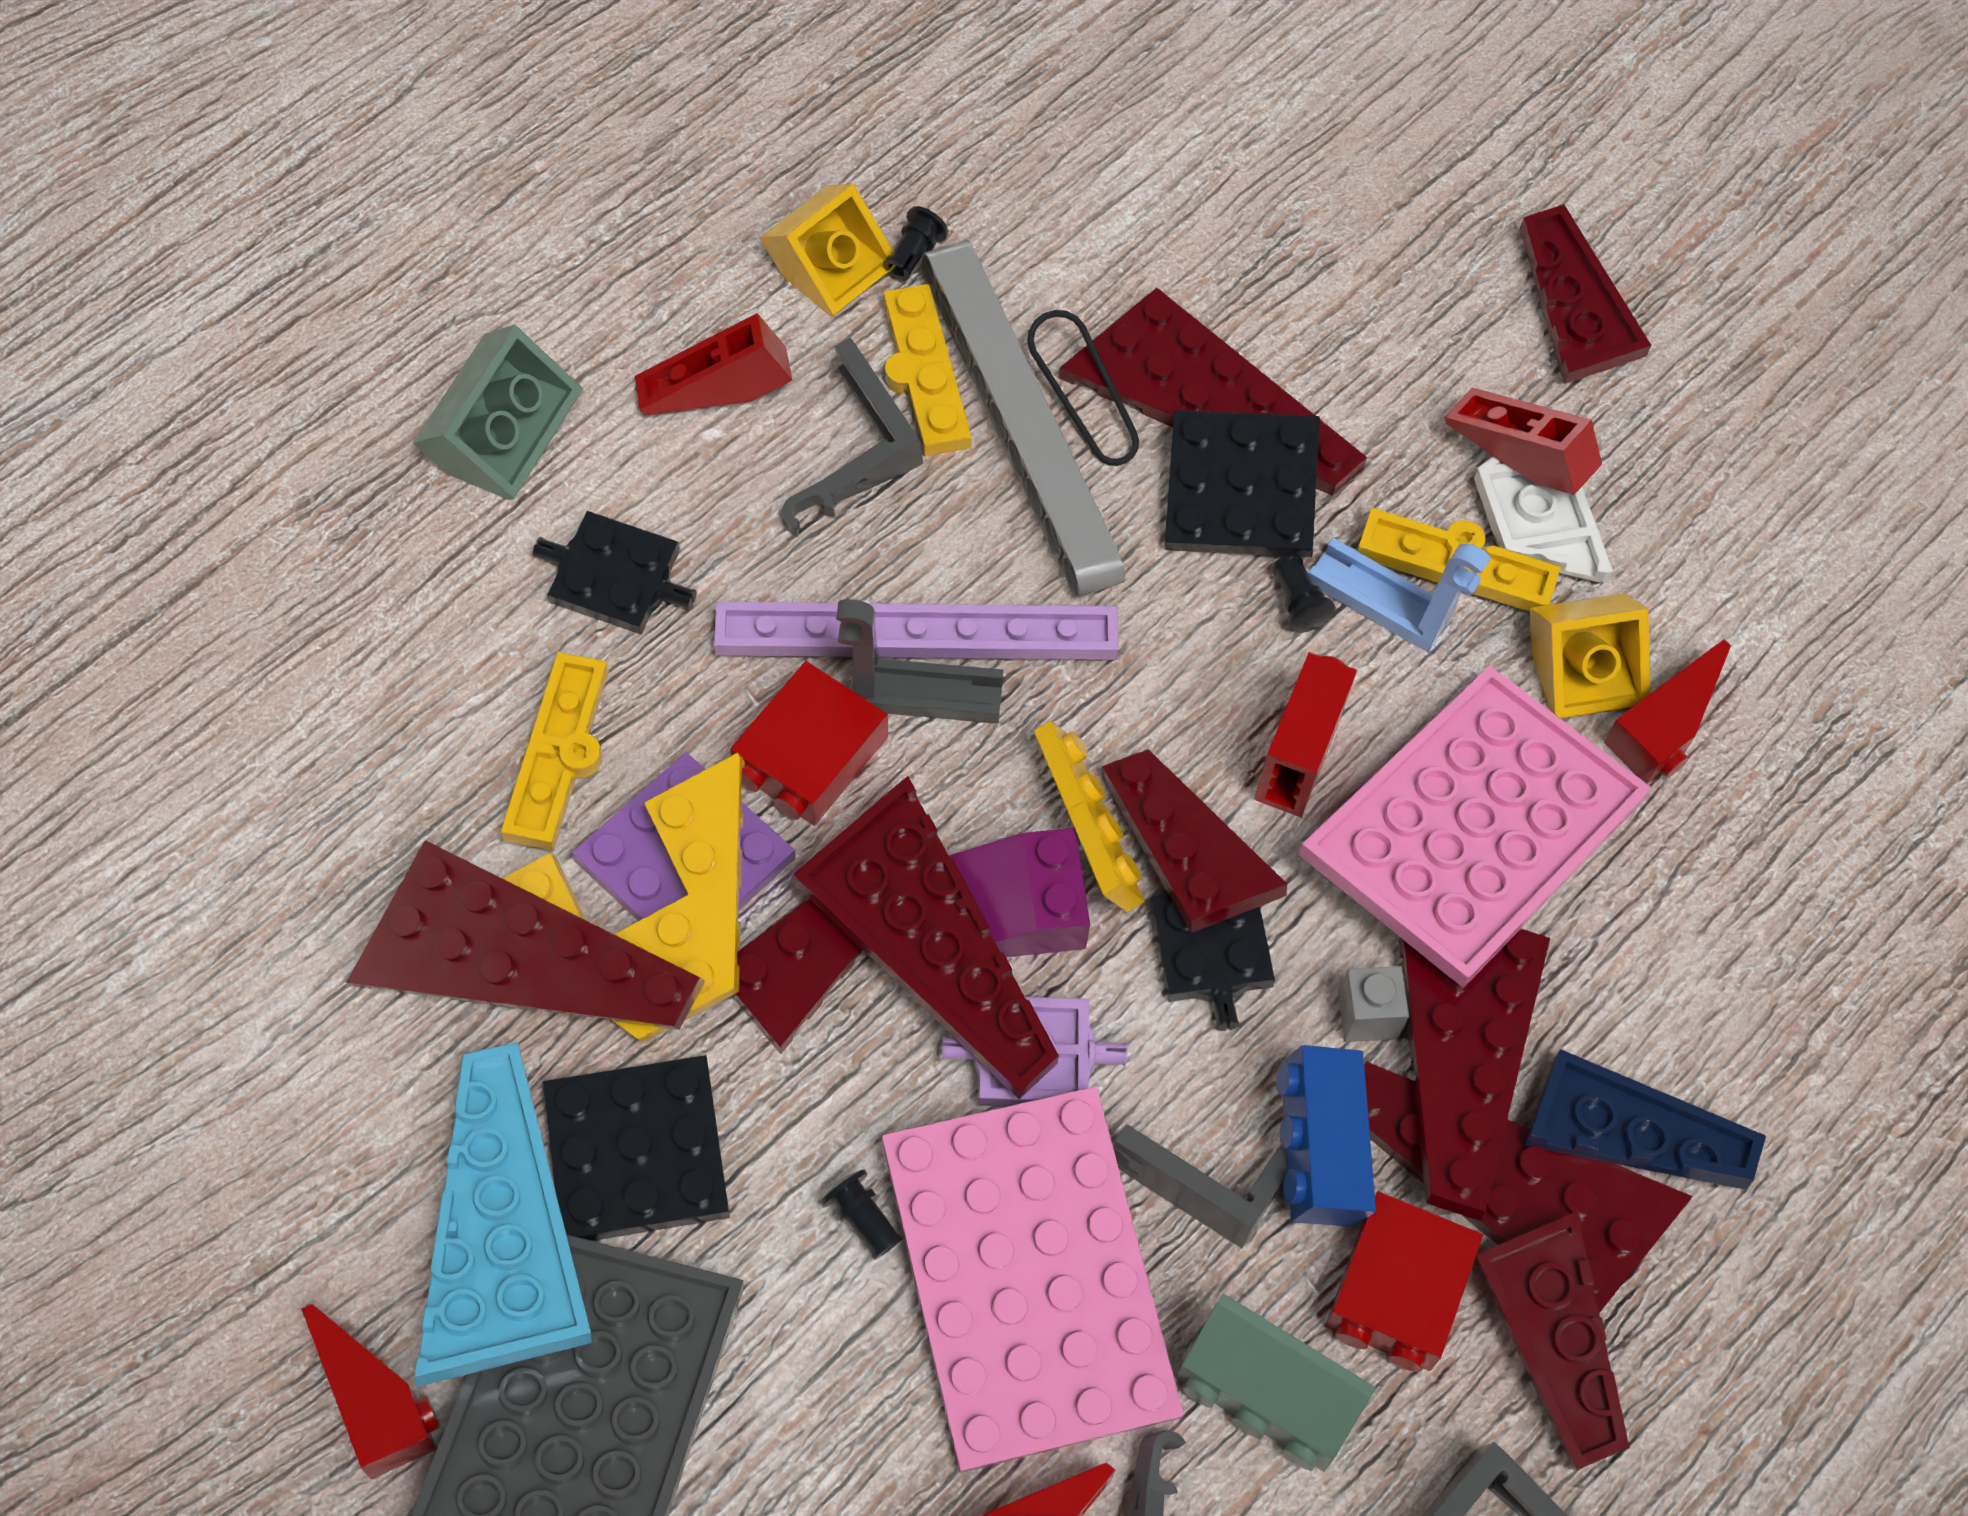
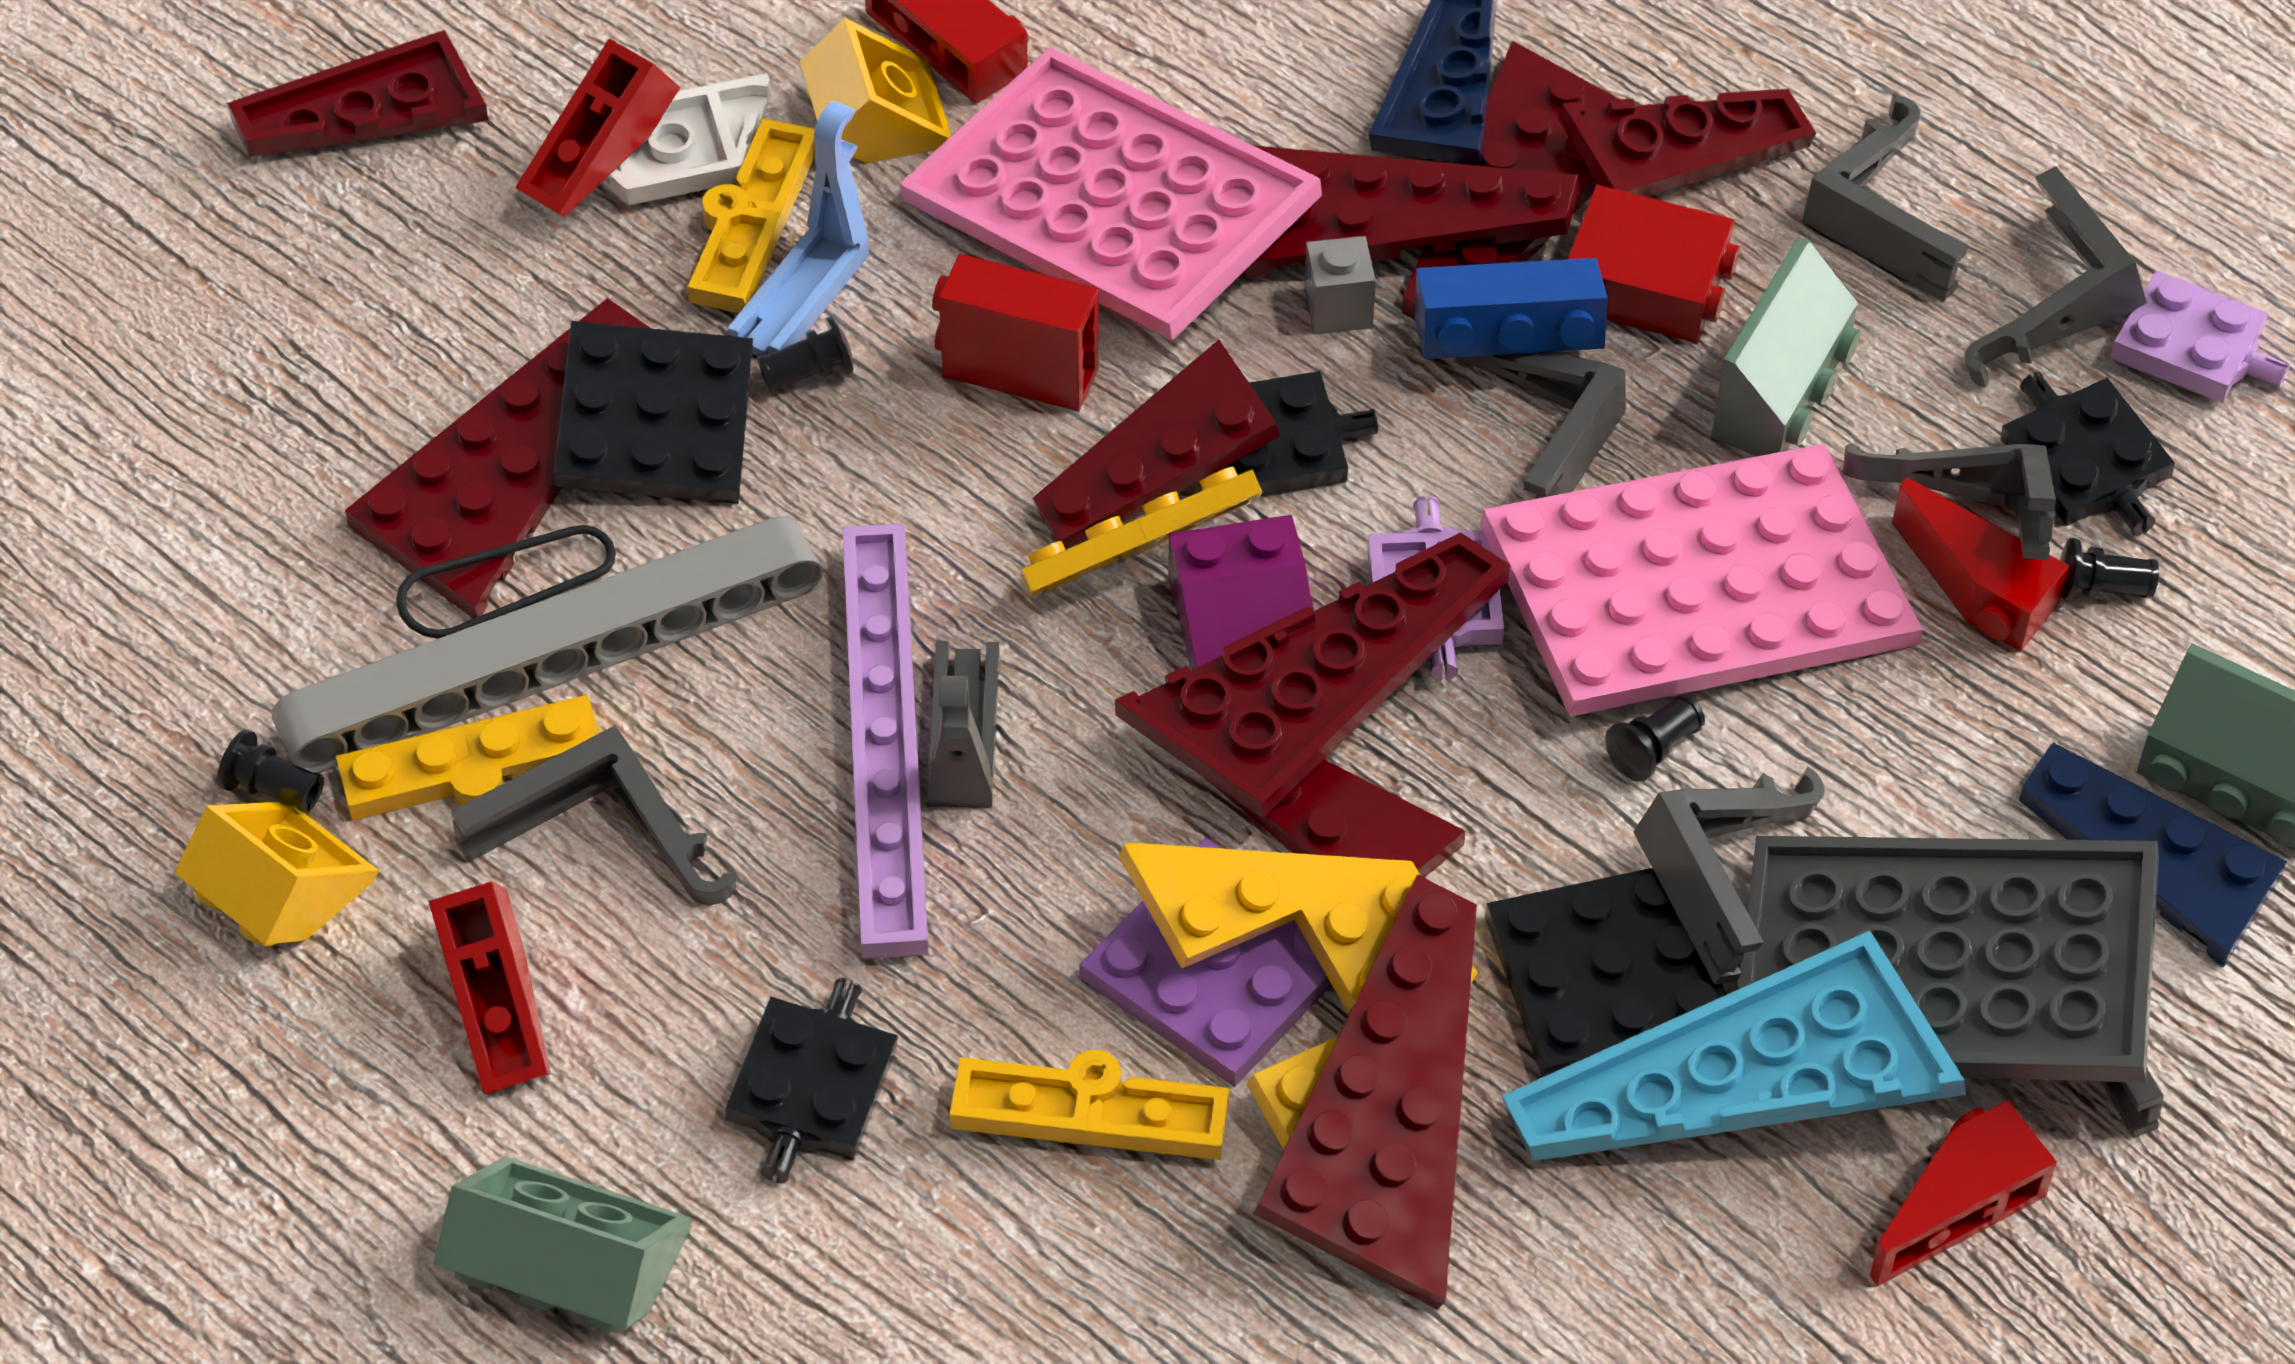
camera: 90 degrees left, 10 degrees down
(755, 1228) = (1678, 848): none -> dark grey hinge
(810, 743) = (1056, 830): red brick -> none

